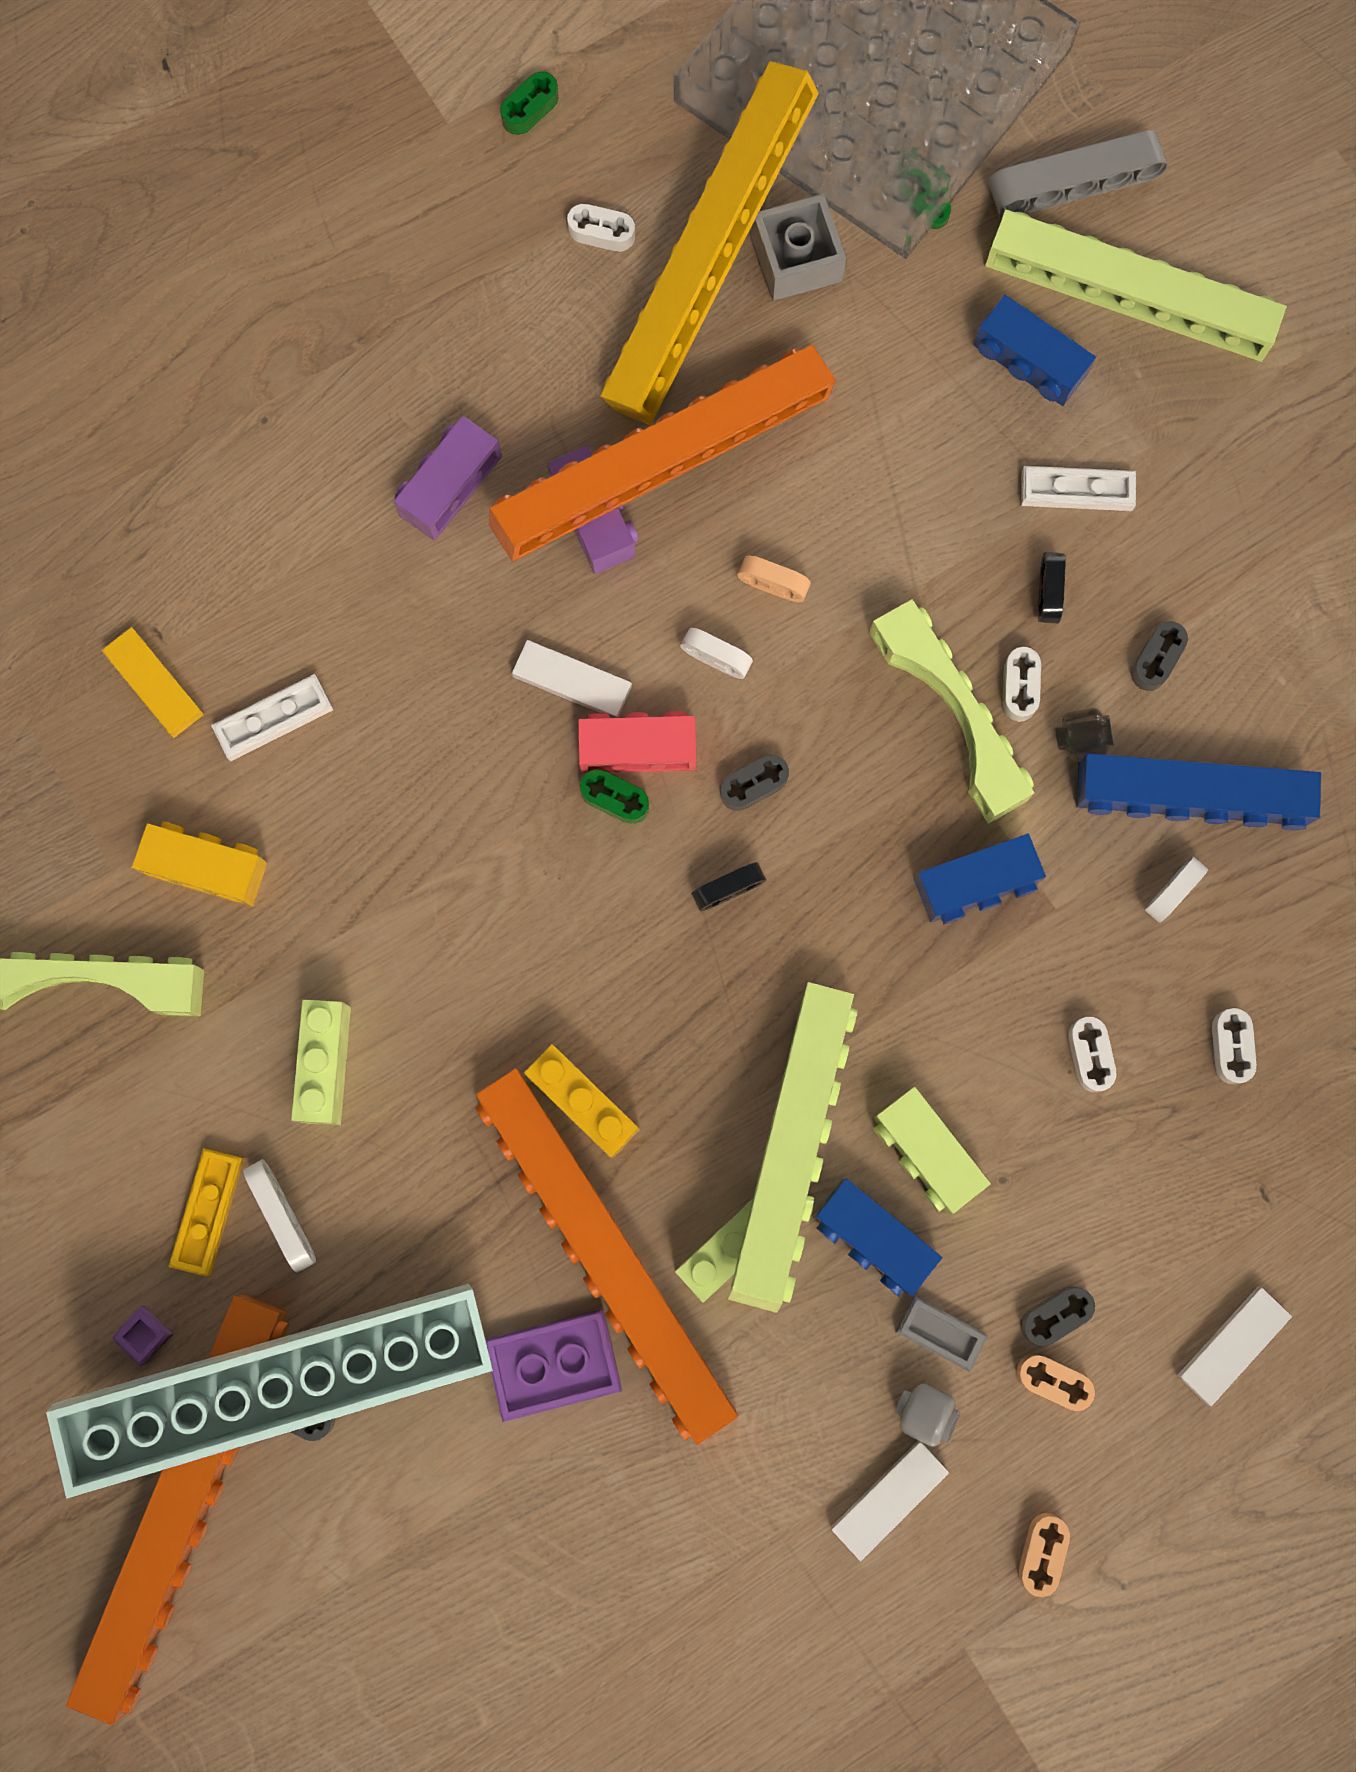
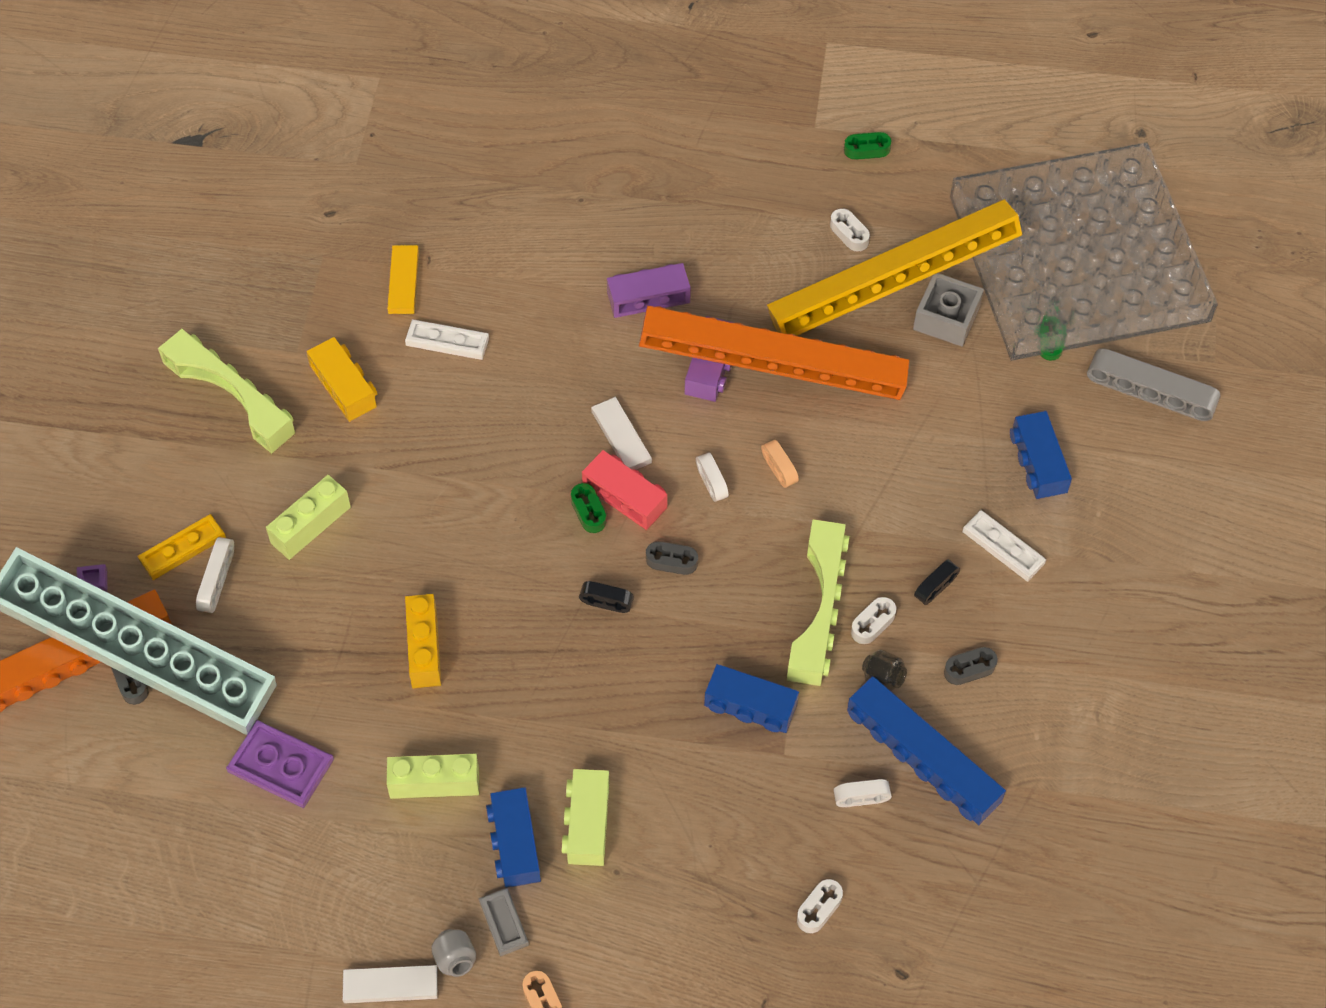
camera: 40 degrees right, 20 degrees down
(607, 1256) = (360, 731): orange brick -> none
(792, 1149) = (509, 741): yellowish green brick -> none
(1063, 1324) = (577, 973): dark grey beam -> none
(1101, 1052) = (736, 847): white beam -> none
(1136, 285) = (1136, 464): yellowish green brick -> none

